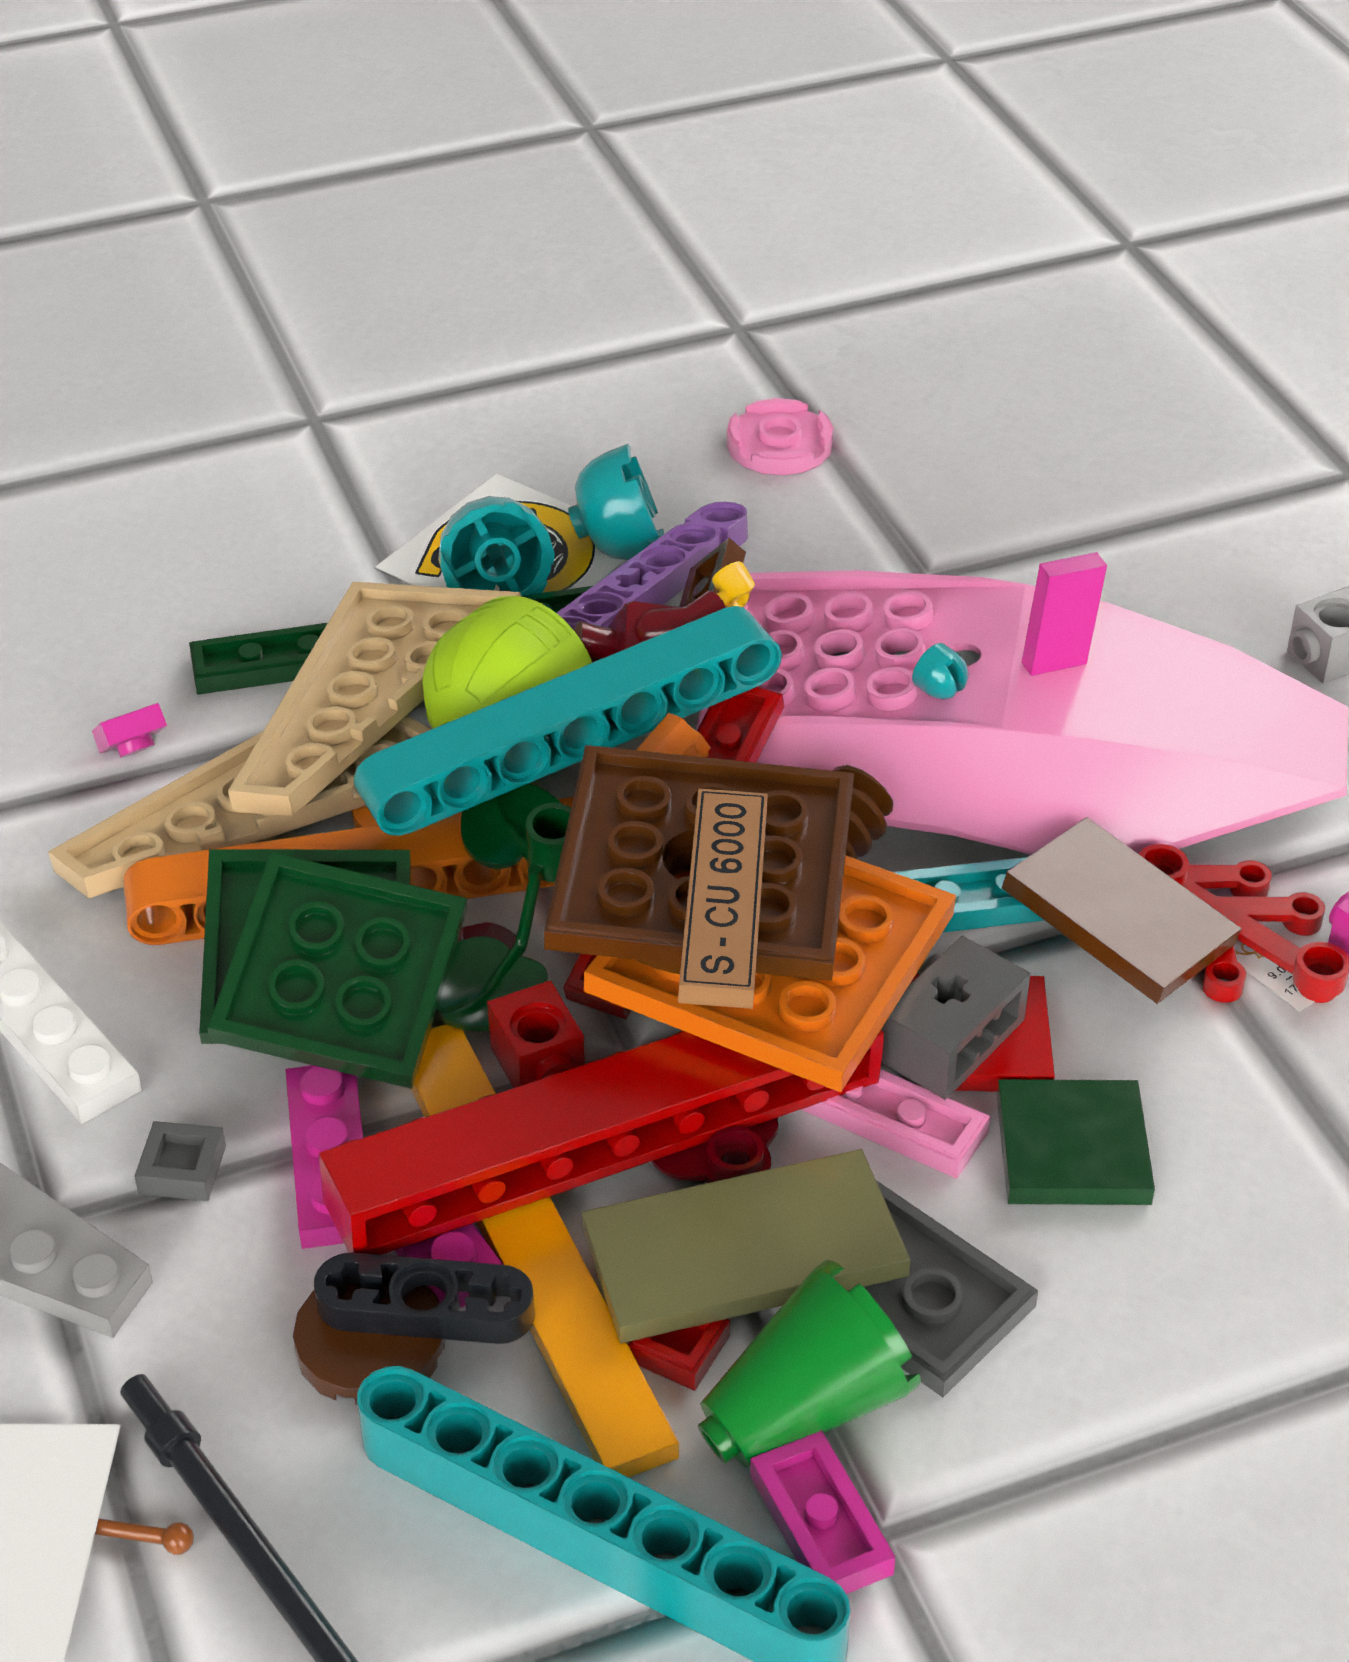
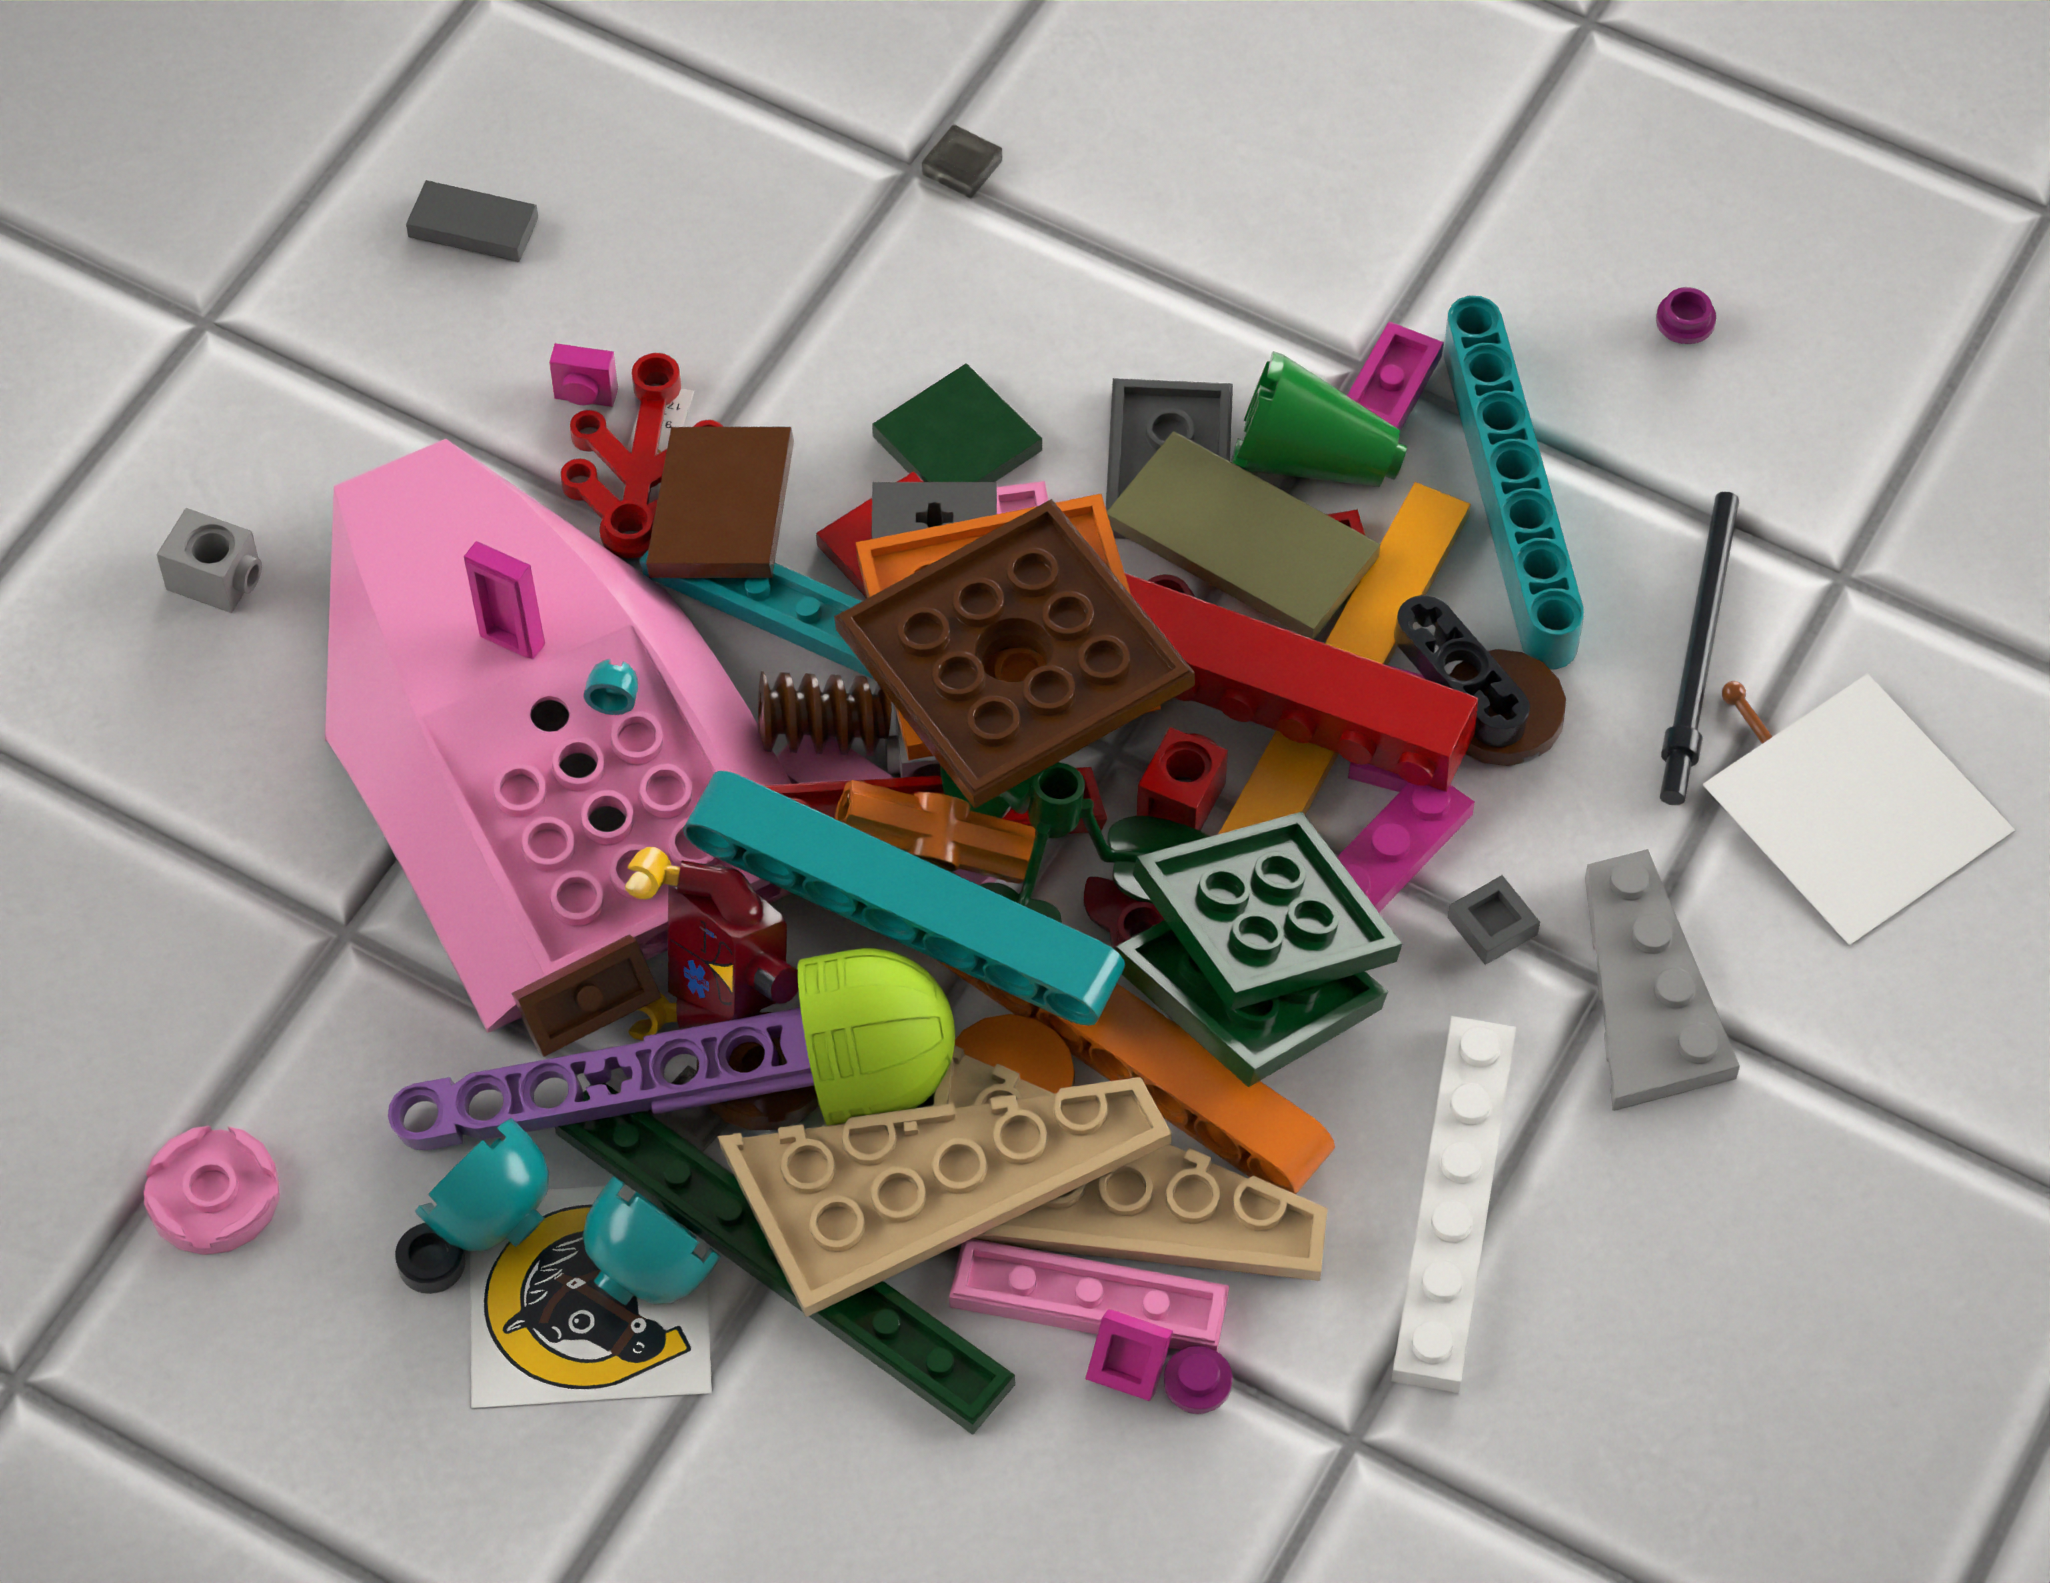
camera: 130 degrees left, 15 degrees up
(71, 762) = (1198, 1379): none -> magenta plate
(172, 758) = (1080, 1291): none -> bright pink tile
(724, 899) = (1061, 582): medium nougat tile -> none

